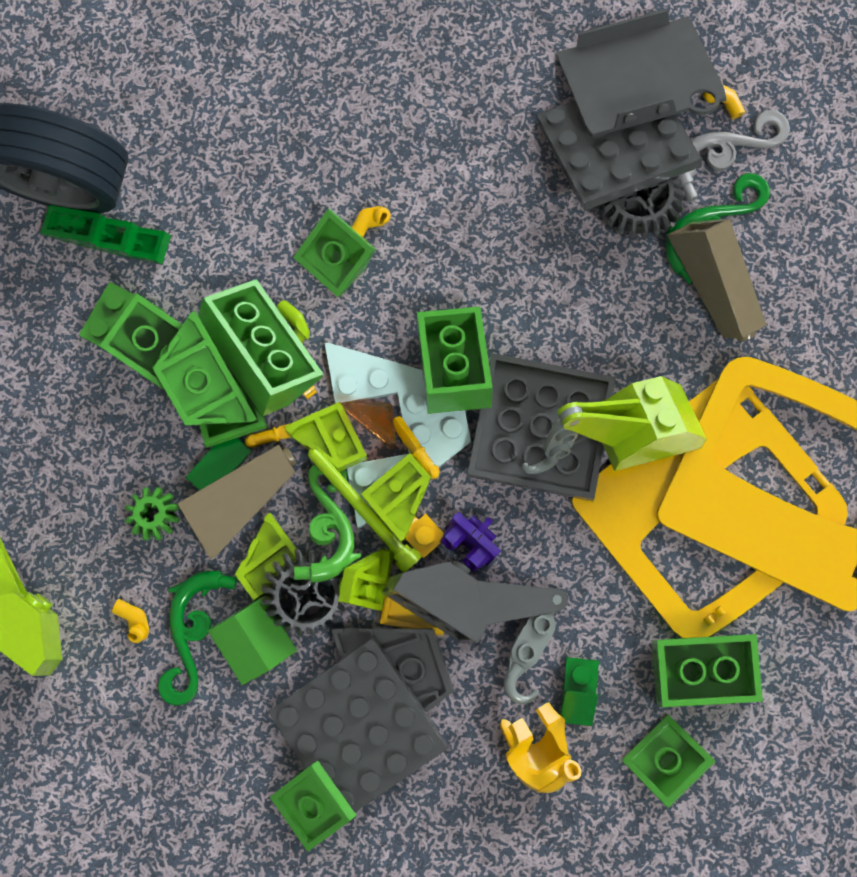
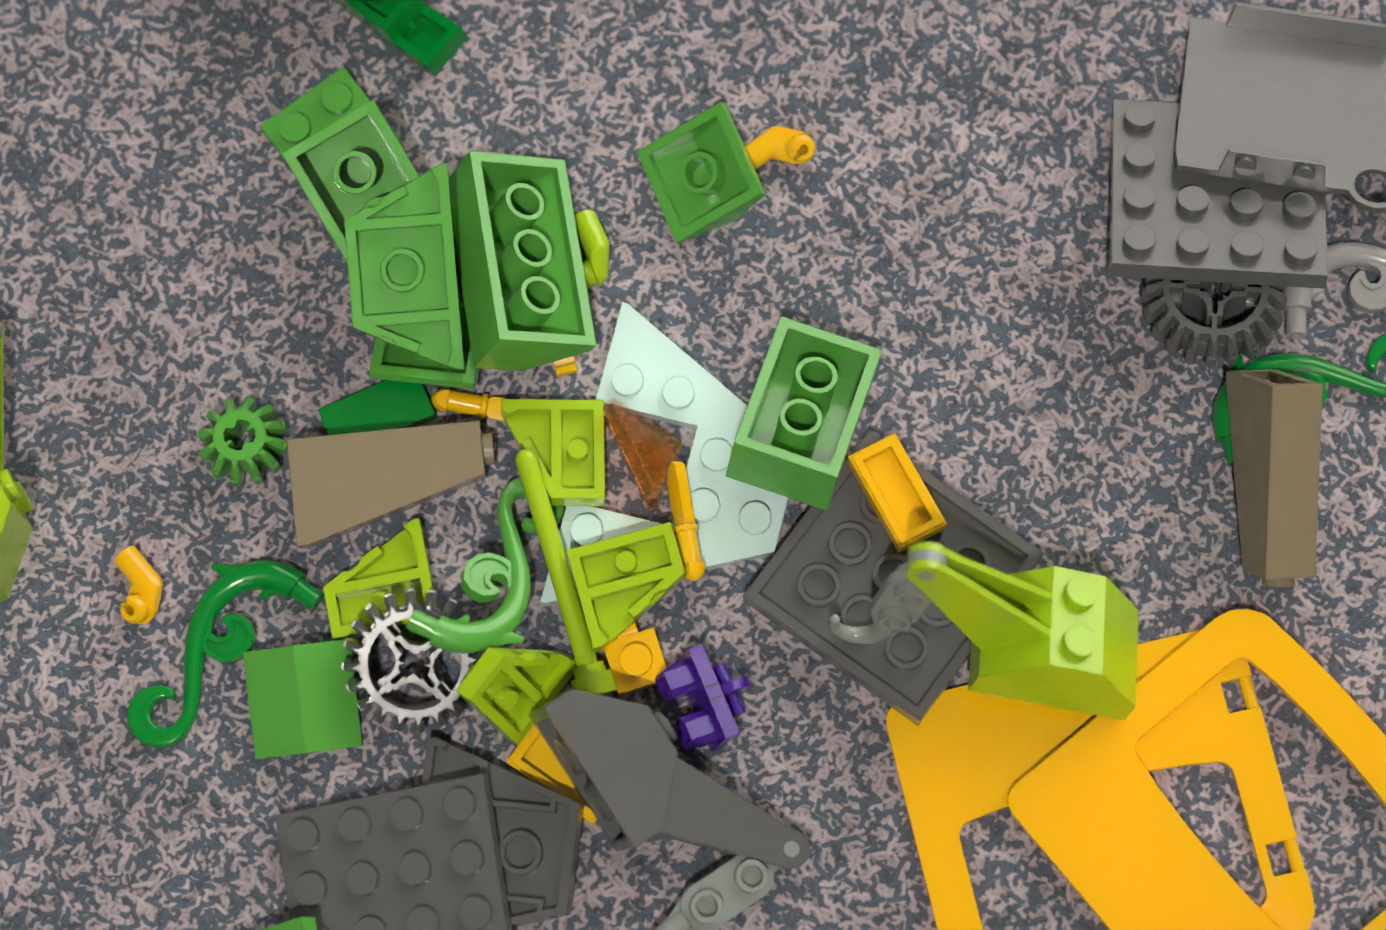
camera: 25 degrees right, 5 degrees down
(523, 380) = (896, 492): none -> yellow tile

